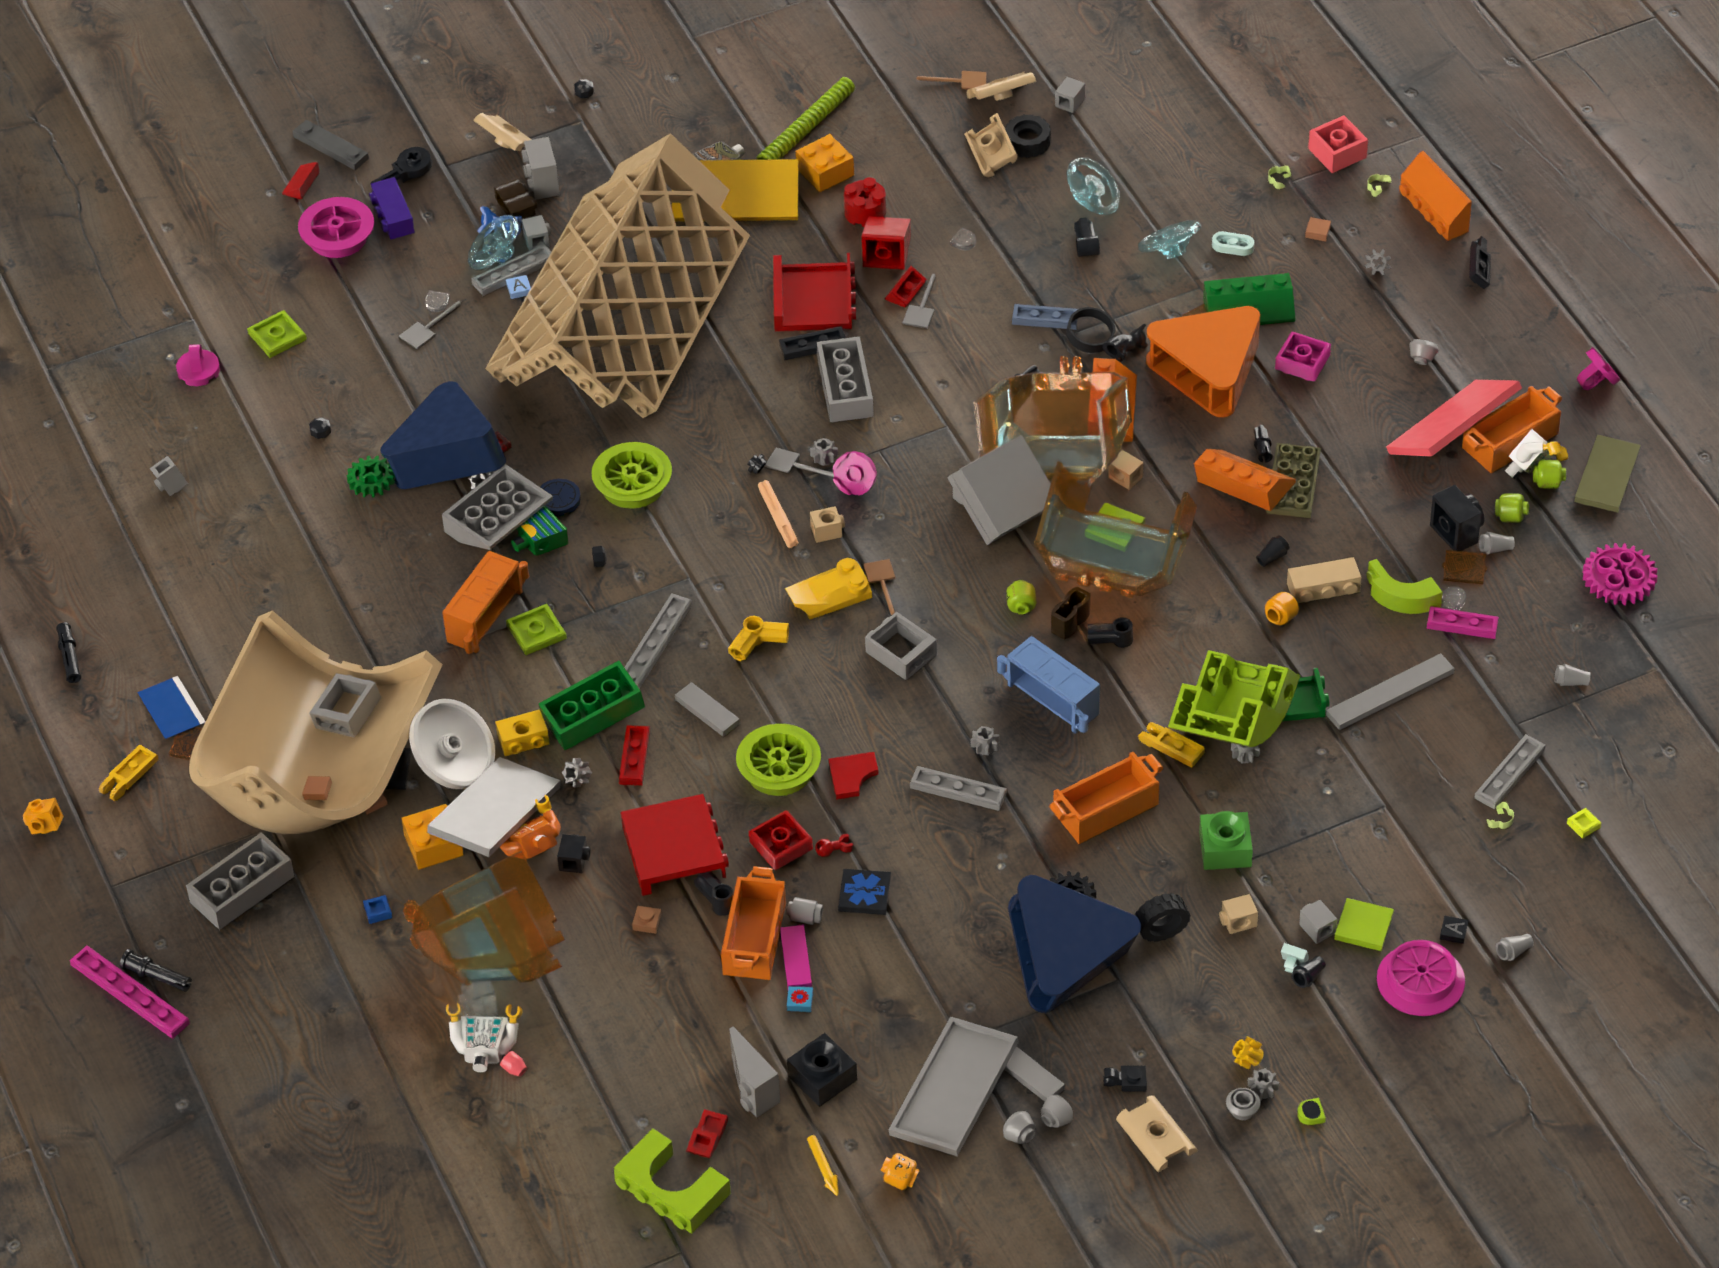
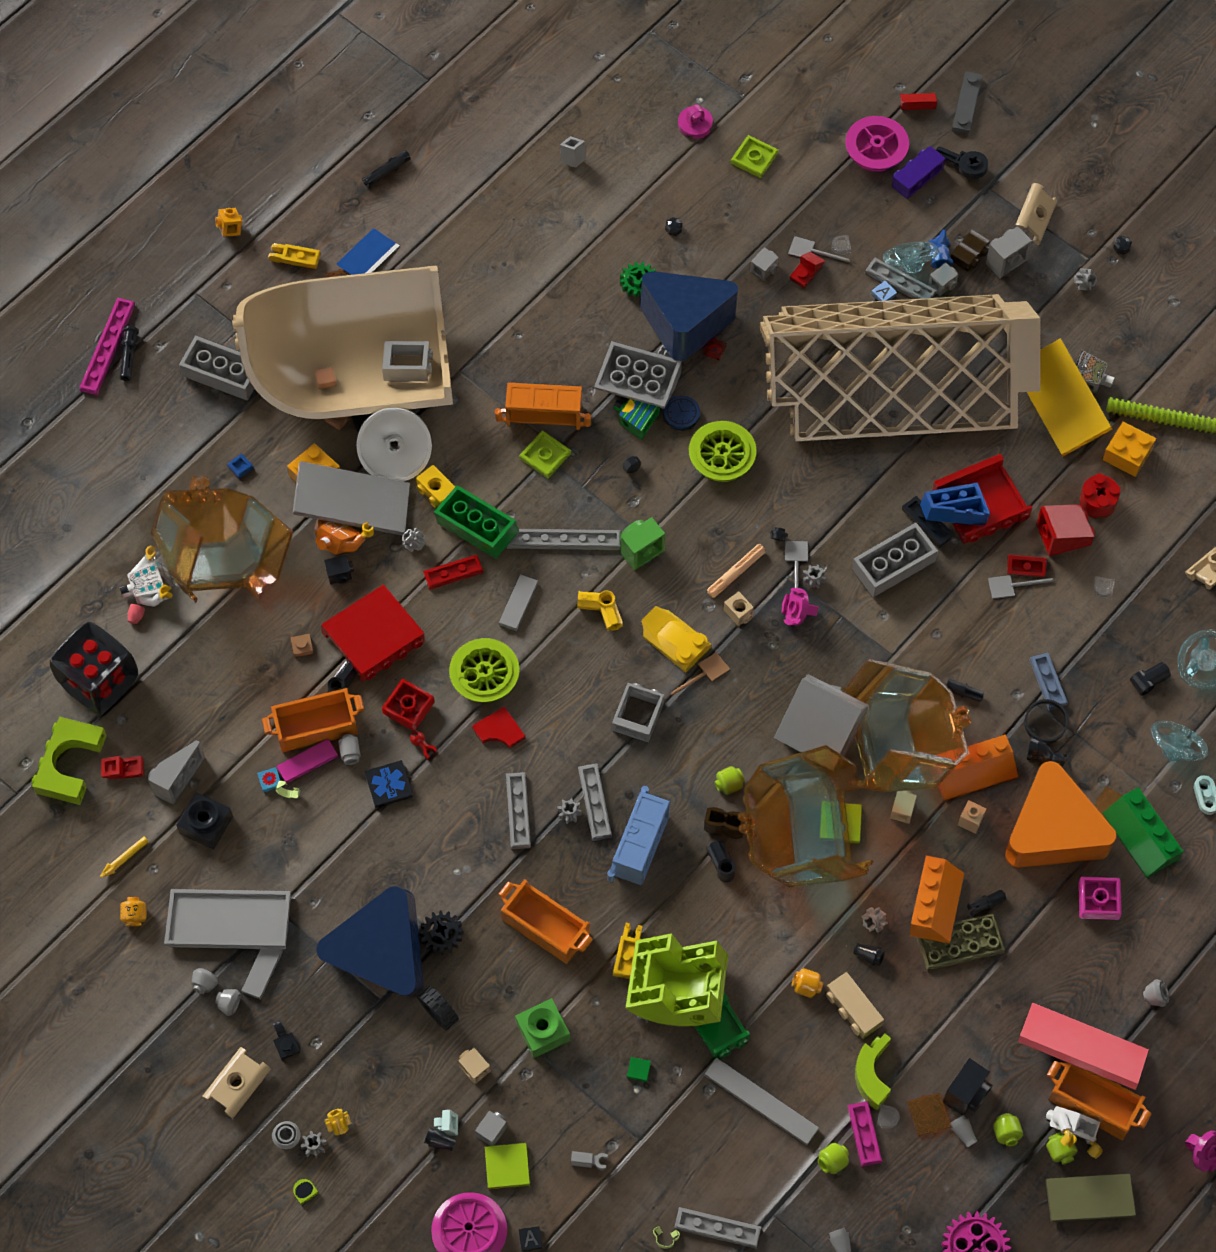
camera: 65 degrees right, 15 degrees up
(421, 366) = (764, 264): none -> light grey brick
(450, 337) = (807, 269): none -> red slope
(575, 1107) = (94, 667): none -> black piece
(608, 126) = (1085, 279): none -> light grey gear
(703, 572) = (642, 542): none -> bright green piece
(815, 305) = (956, 505): none -> blue wedge
(829, 982) = (287, 793): none -> yellowish green piece
(975, 717) = (594, 802): none -> light grey tile
(1165, 420) = (972, 816): none -> tan brick
(1233, 532) = (874, 919): none -> light grey gear
(1308, 779) = (638, 1069): none -> green tile
(1389, 853) = (588, 1160): none -> light grey bar
(1480, 650) = (833, 1158): none -> lime head

